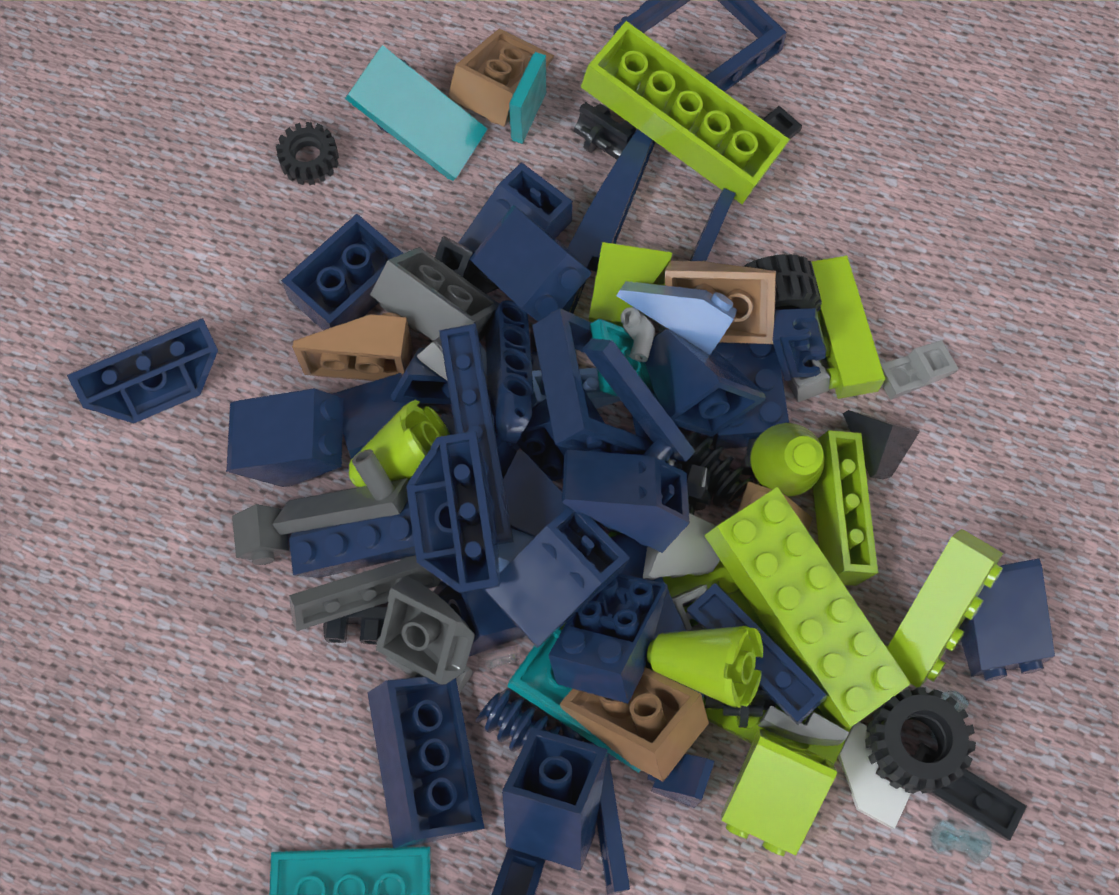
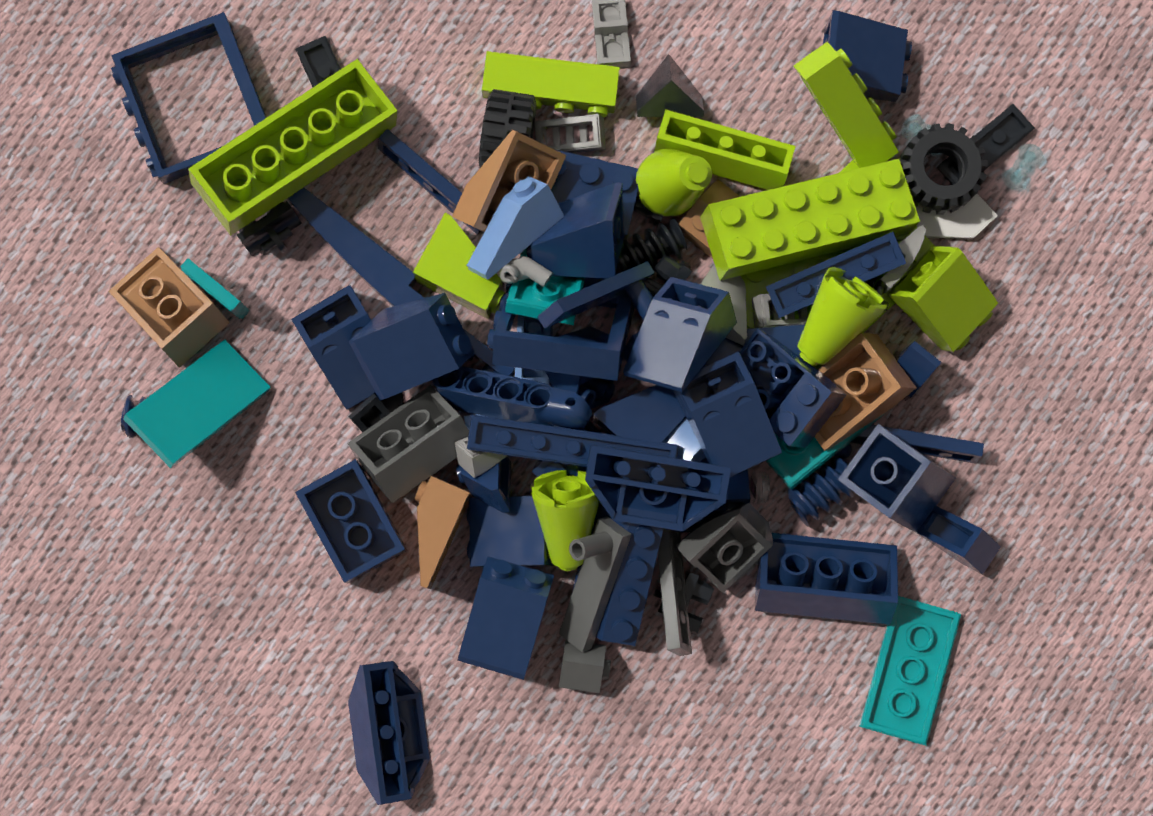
camera: 75 degrees left, 15 degrees up
(307, 137) = (174, 523): black tyre -> none
(797, 340) = (563, 135): dark blue hinge -> none

